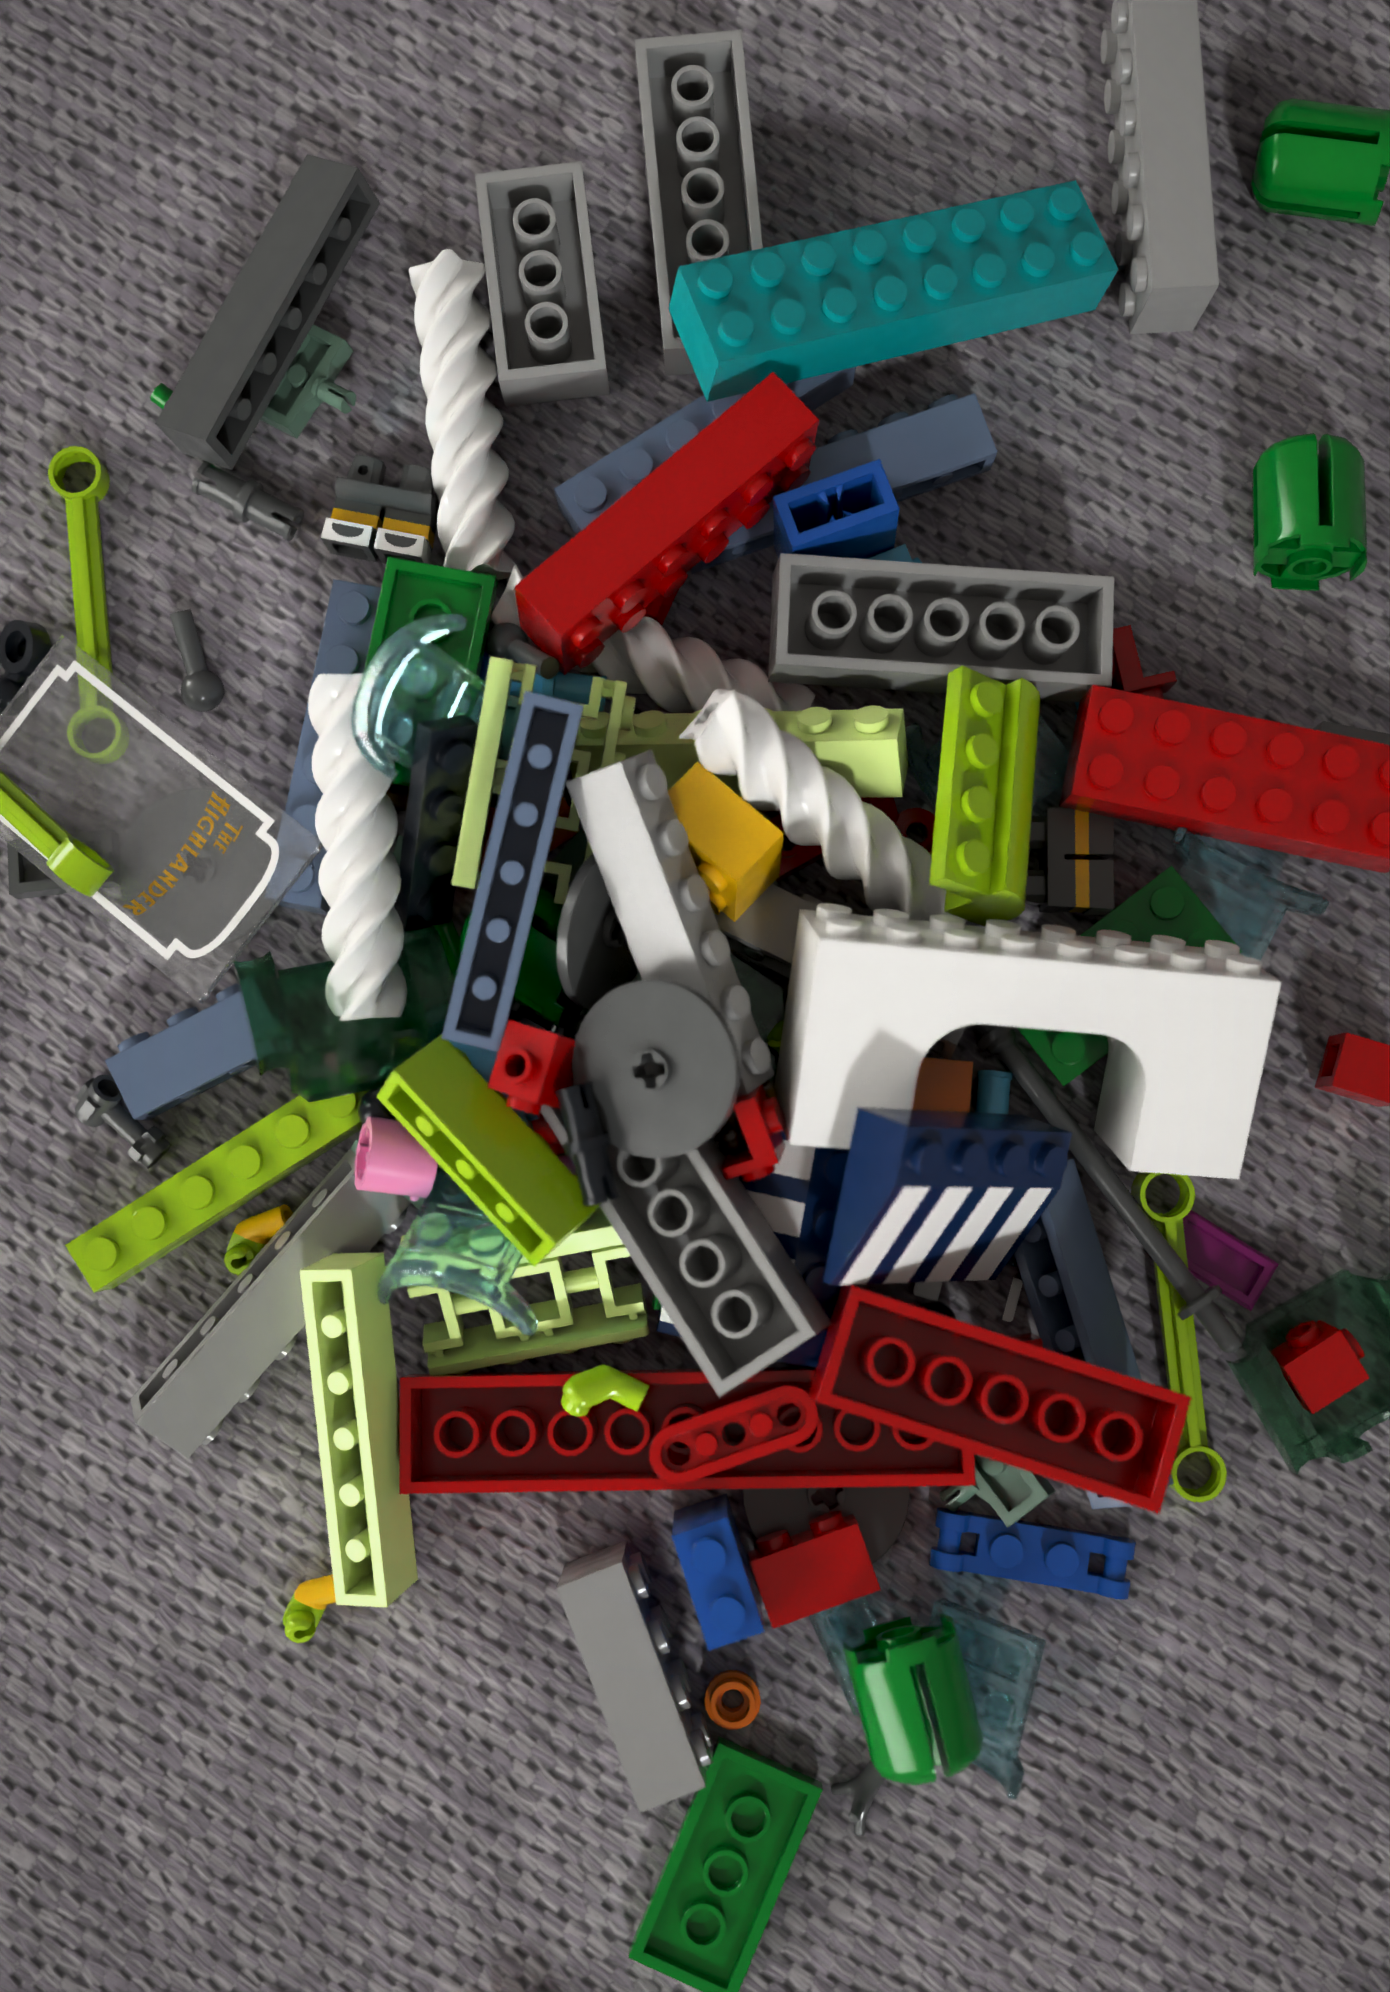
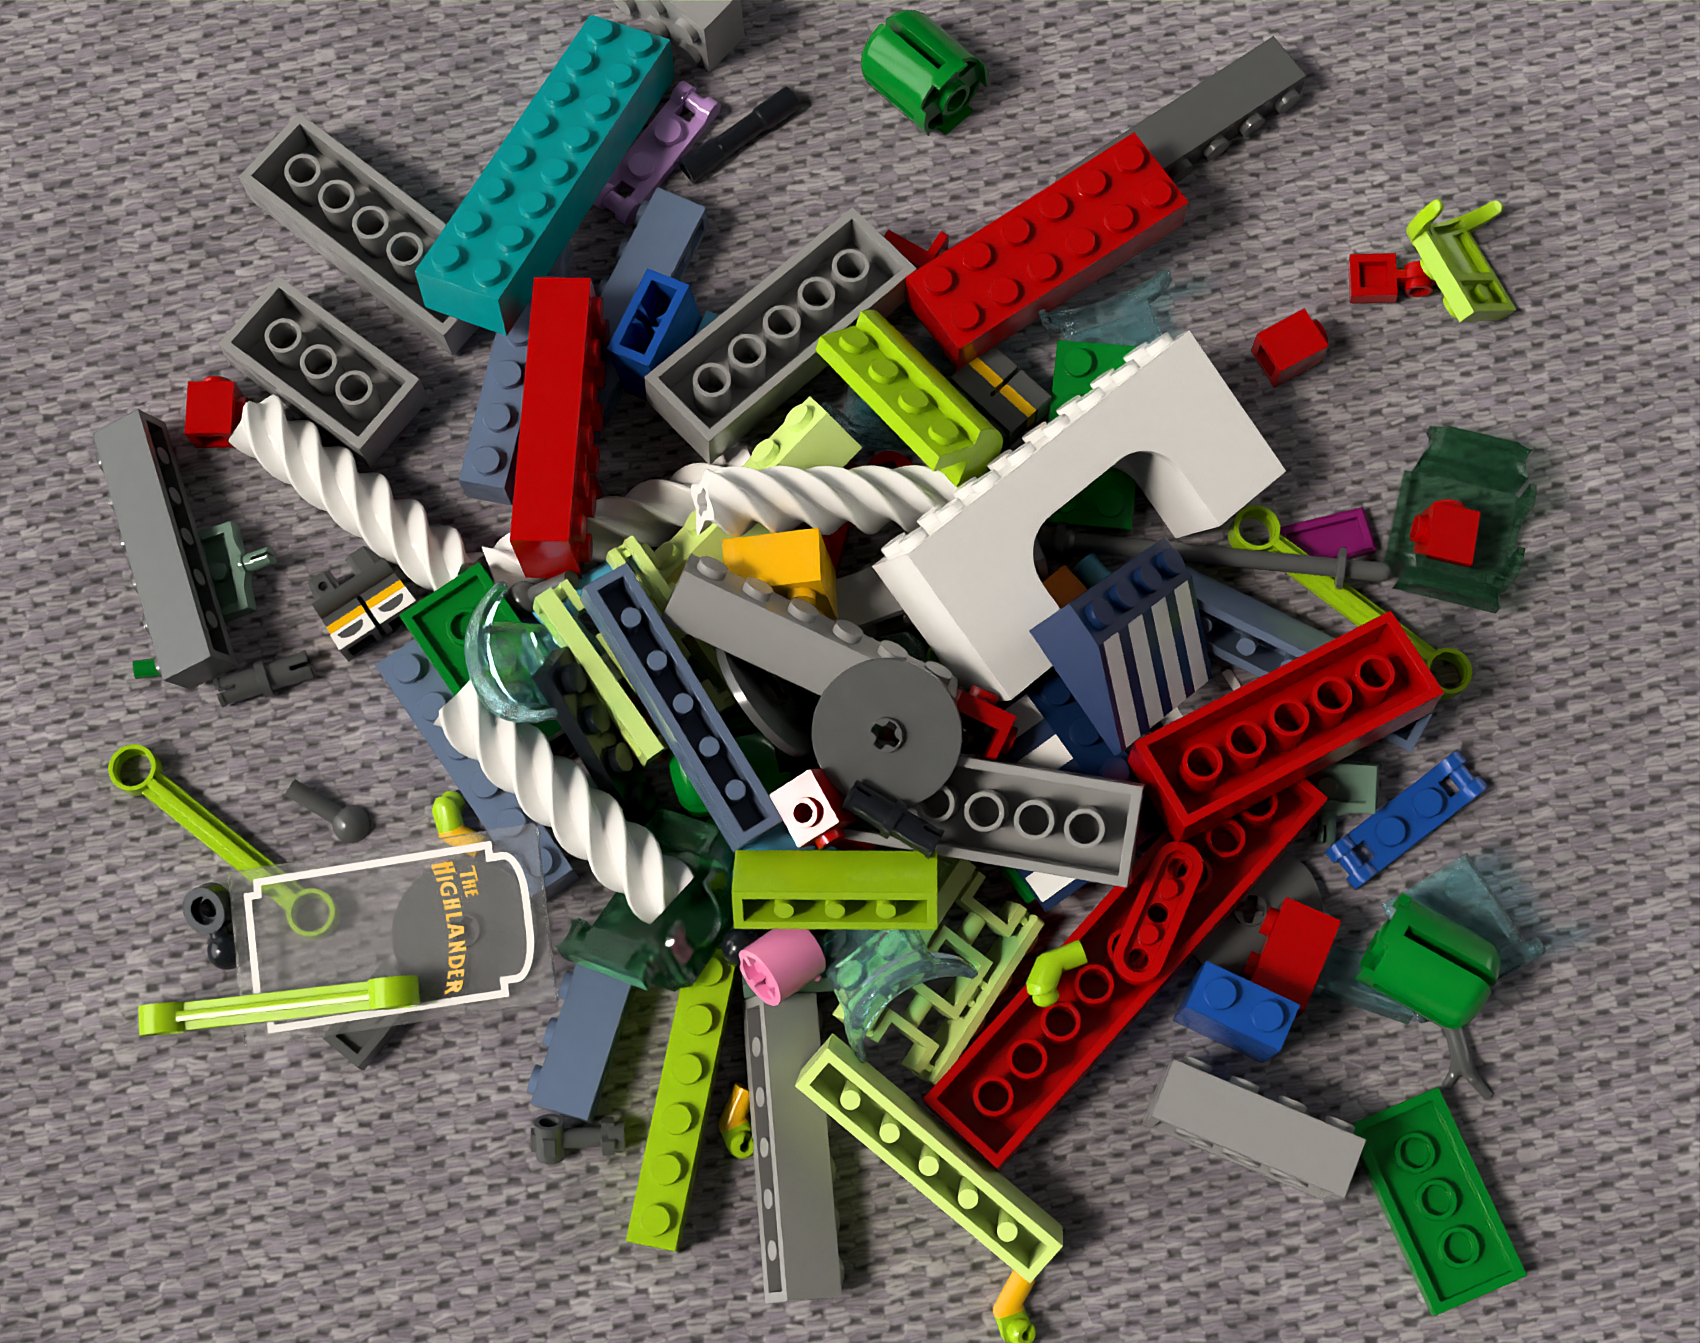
camera: 50 degrees left, 10 degrees down
(275, 768) = (448, 815): none -> lime arm
(423, 229) = (213, 411): none -> red brick
(732, 1717) = (1339, 1083): orange plate -> none
(1012, 362) = (657, 152): none -> lavender plate
(1129, 419) = (761, 119): none -> black piece

